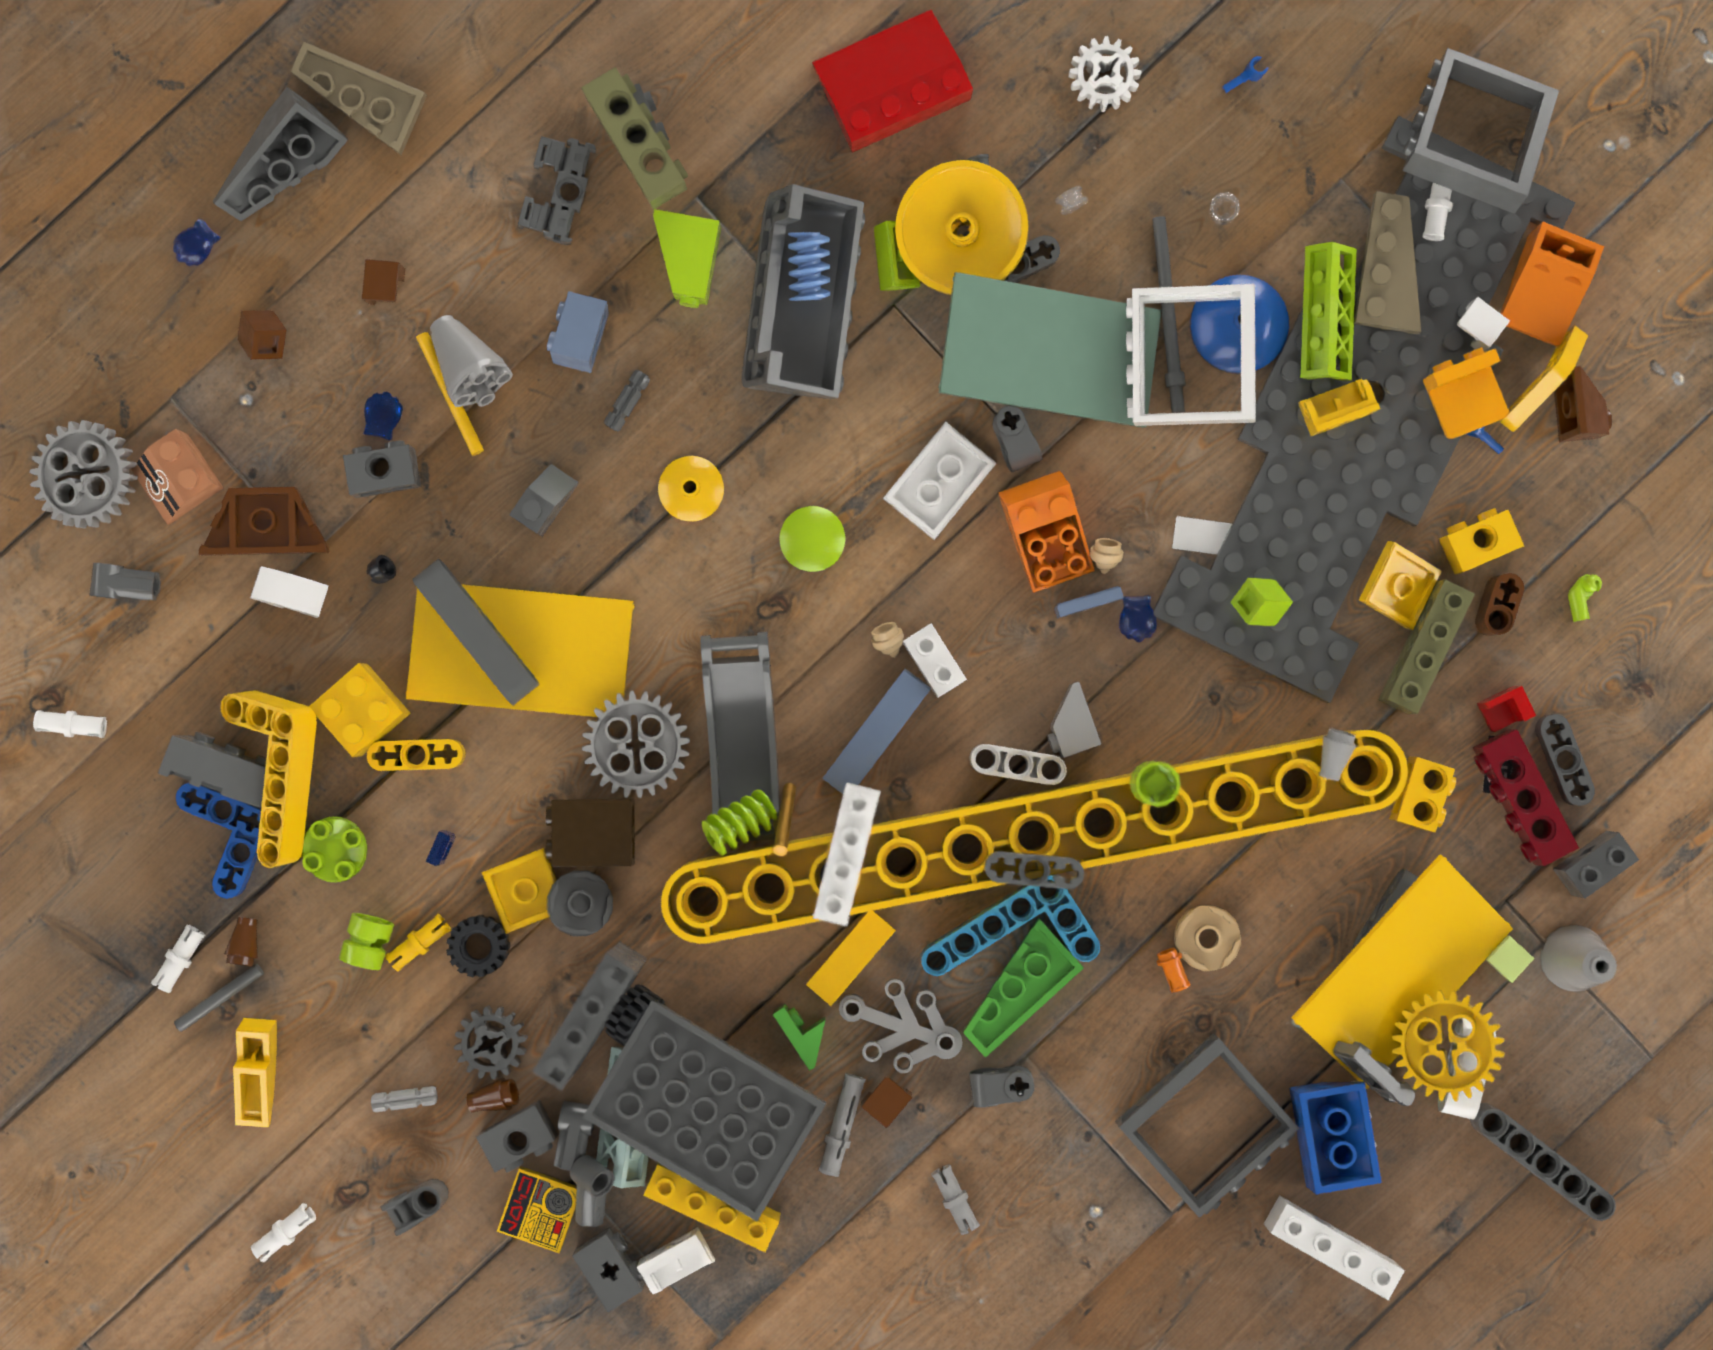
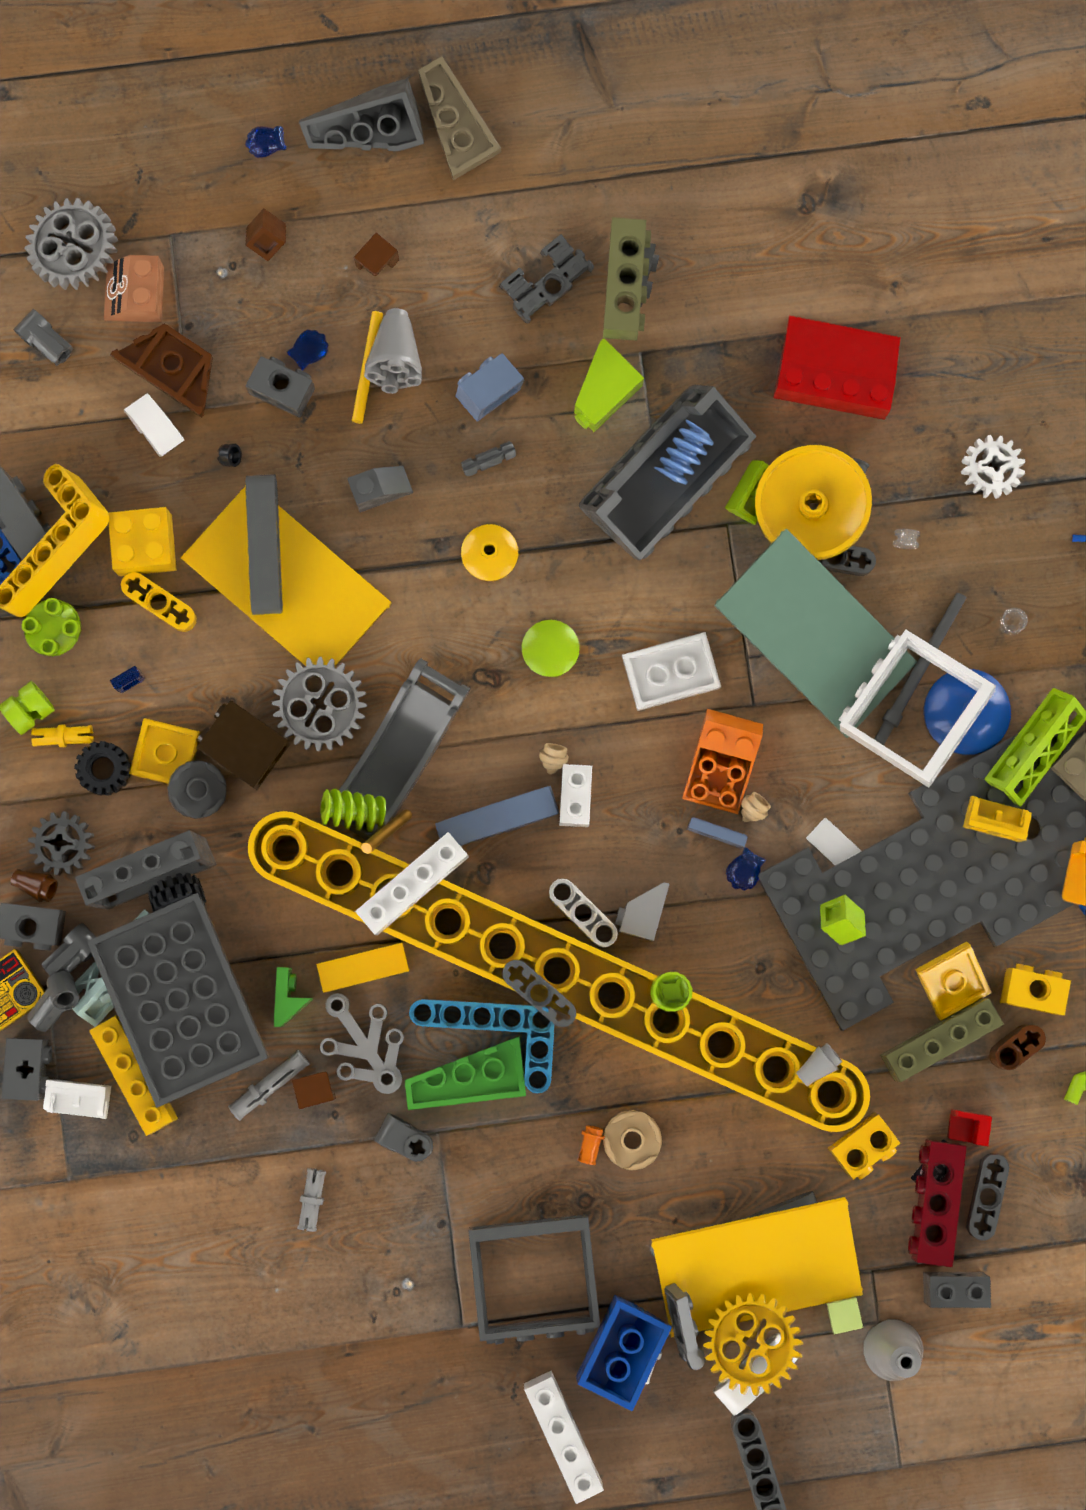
camera: 30 degrees right, 5 degrees down
(1017, 445) = (747, 684): dark grey piece -> none

